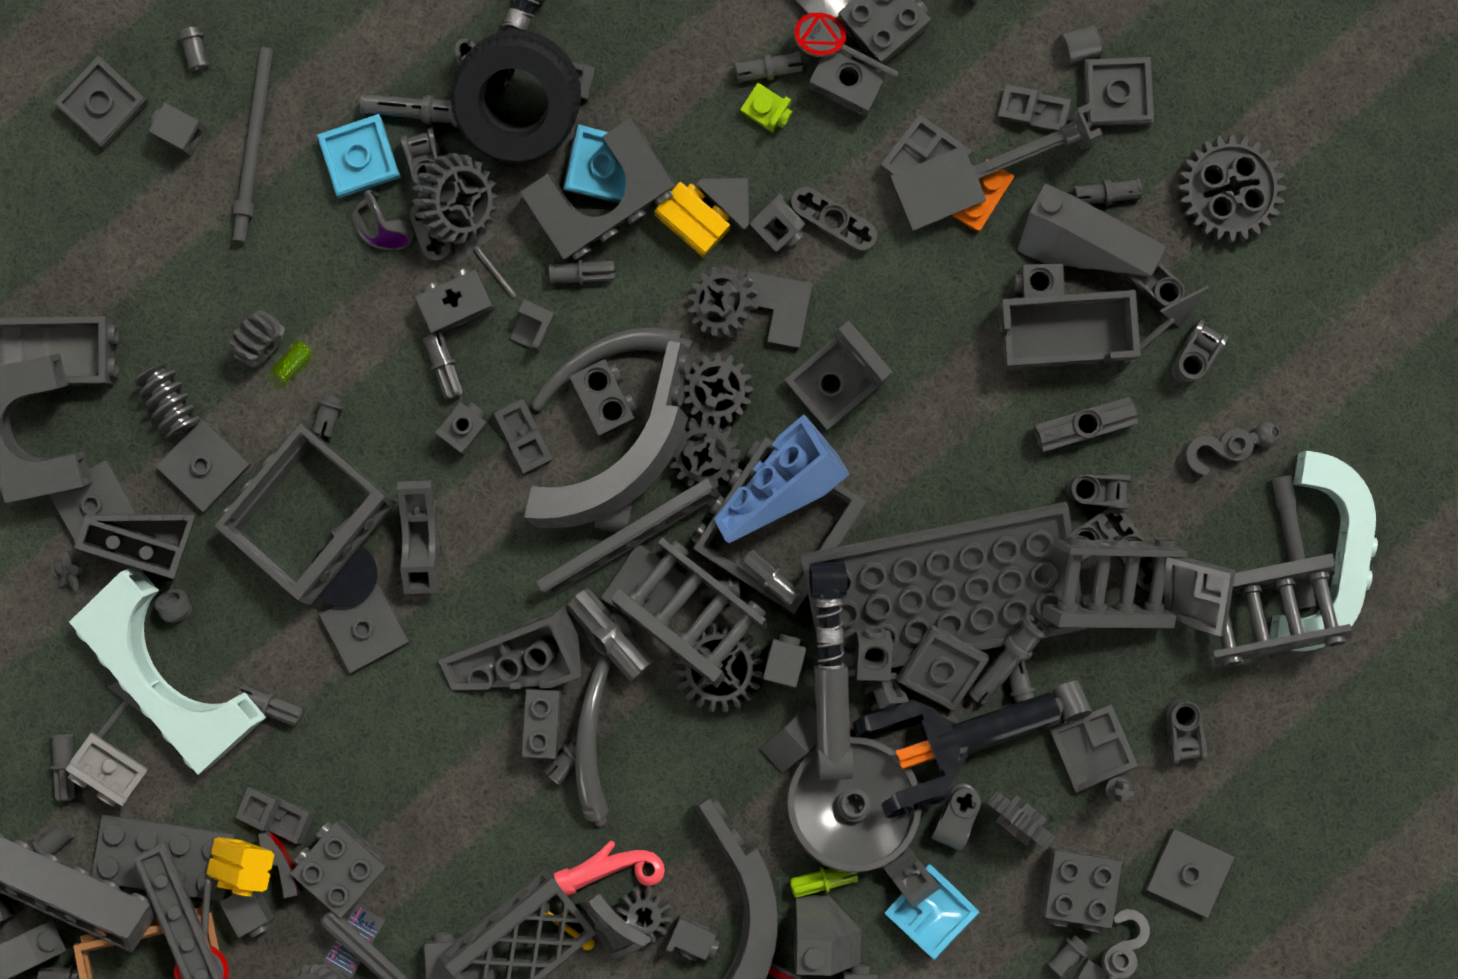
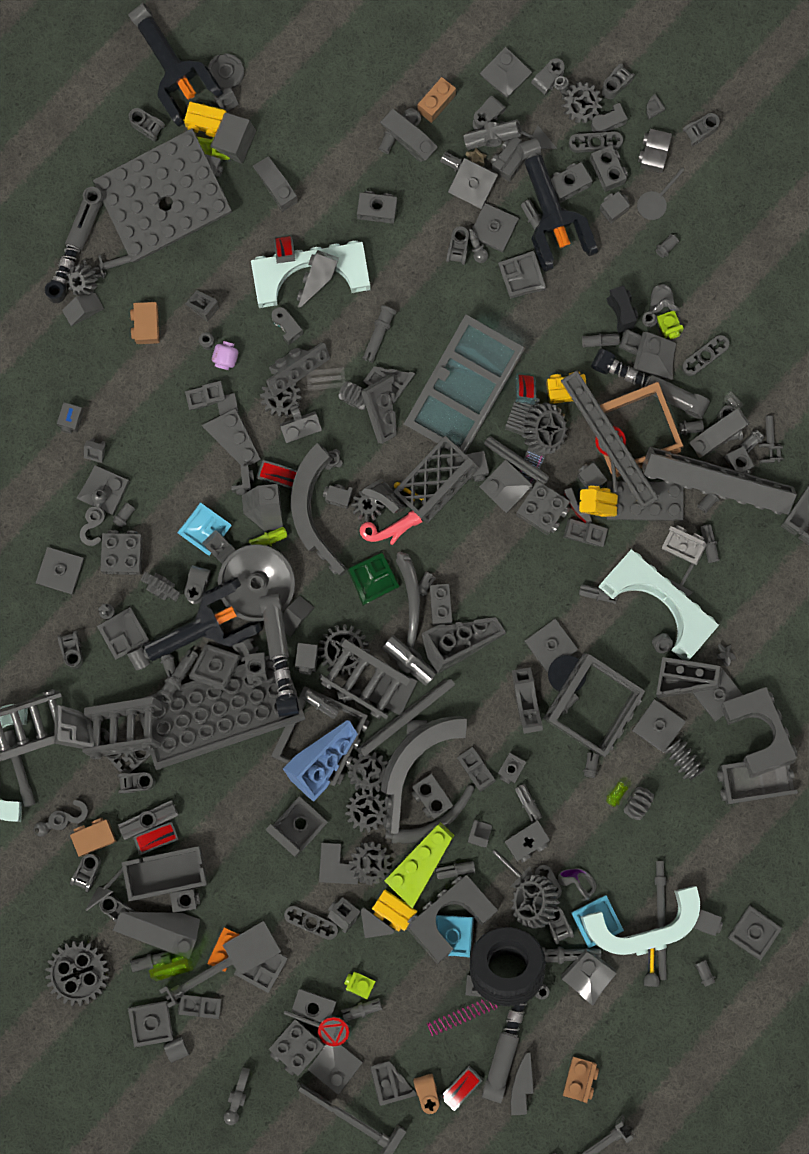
camera: 175 degrees right, 5 degrees down
(262, 111) = (686, 918): none -> light aqua arch
(284, 51) = (651, 979): none -> dark grey hinge
(386, 69) = (589, 975): none -> dark grey plate
(399, 916) = (506, 486): none -> dark grey plate
(609, 23) = (441, 1031): none -> dark pink piece
(642, 283) = (416, 870): none -> lime wedge
(652, 784) = (373, 578): none -> dark green plate
(1076, 393) = (155, 838): none -> red slope
(1087, 170) = (178, 966): none -> clear neon green plate
(1181, 407) = (93, 837): none -> medium nougat brick

